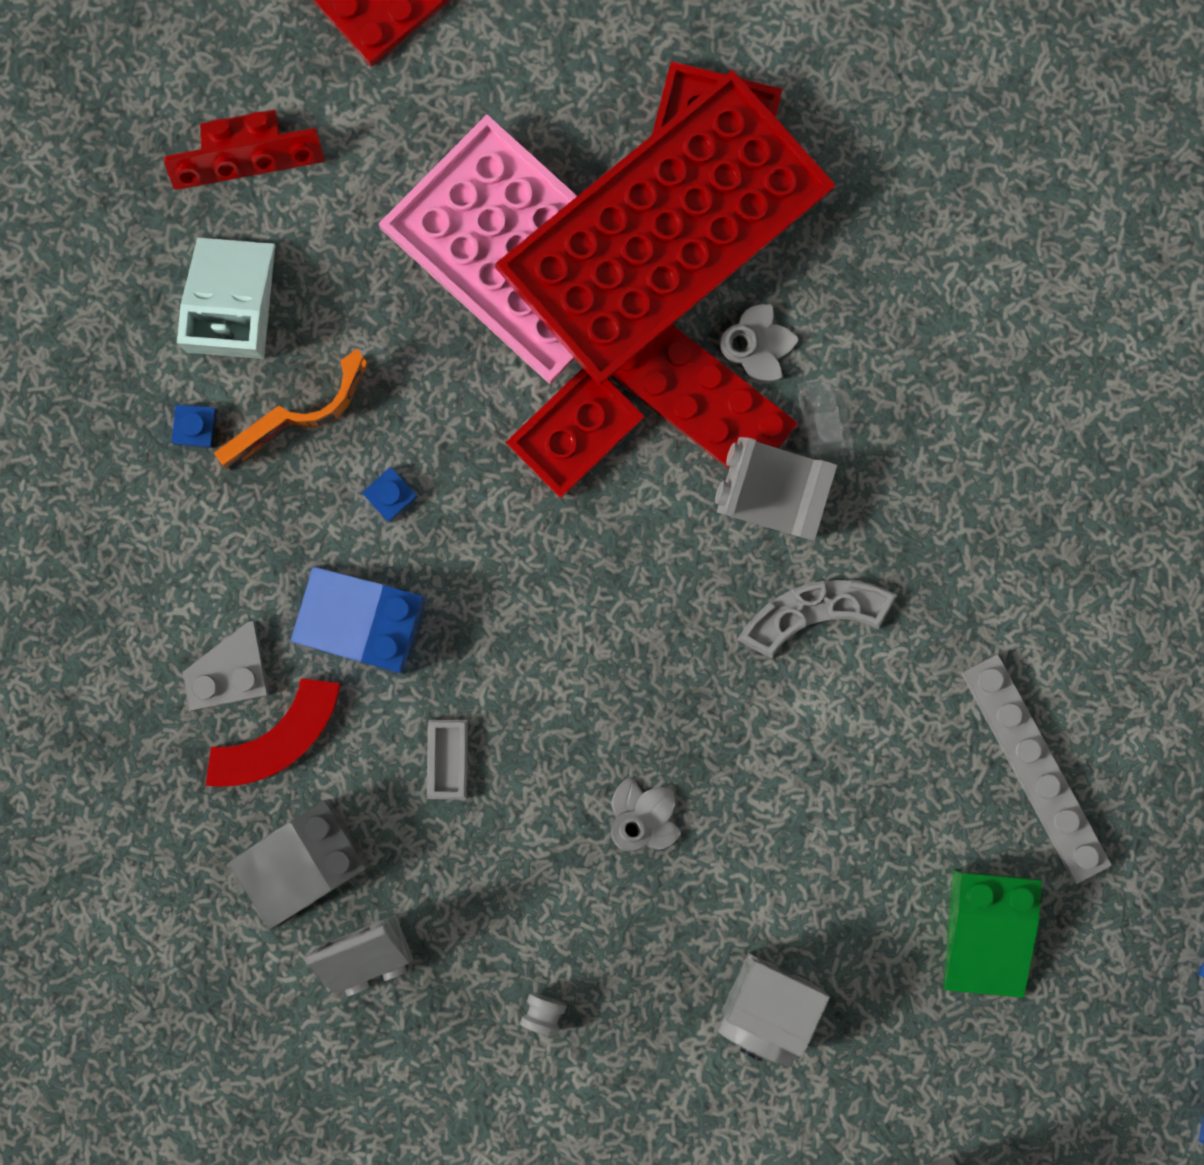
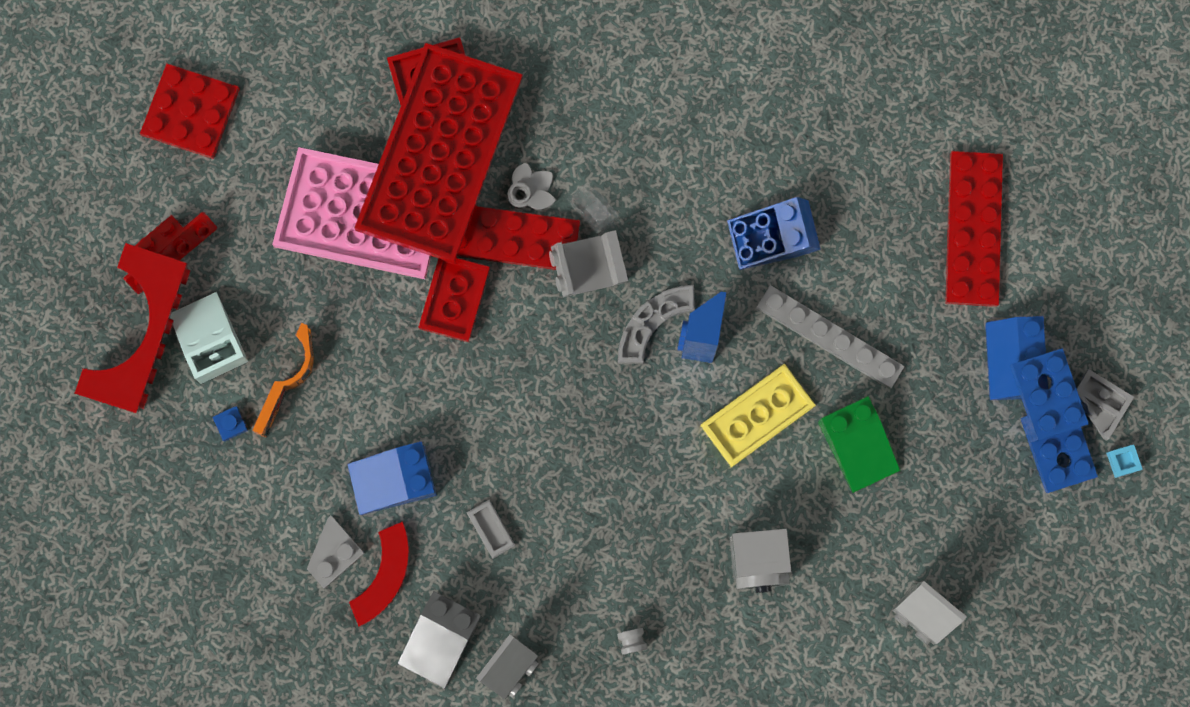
camera: 30 degrees left, 5 degrees down
(205, 192) = (126, 383): none -> red arch
(389, 494) = (368, 397): blue plate -> none
(647, 812) = (623, 491): light grey plate -> none
(875, 671) = (701, 332): none -> blue slope
(880, 815) = (758, 415): none -> light yellow tile
(1043, 589) = (774, 233): none -> blue slope

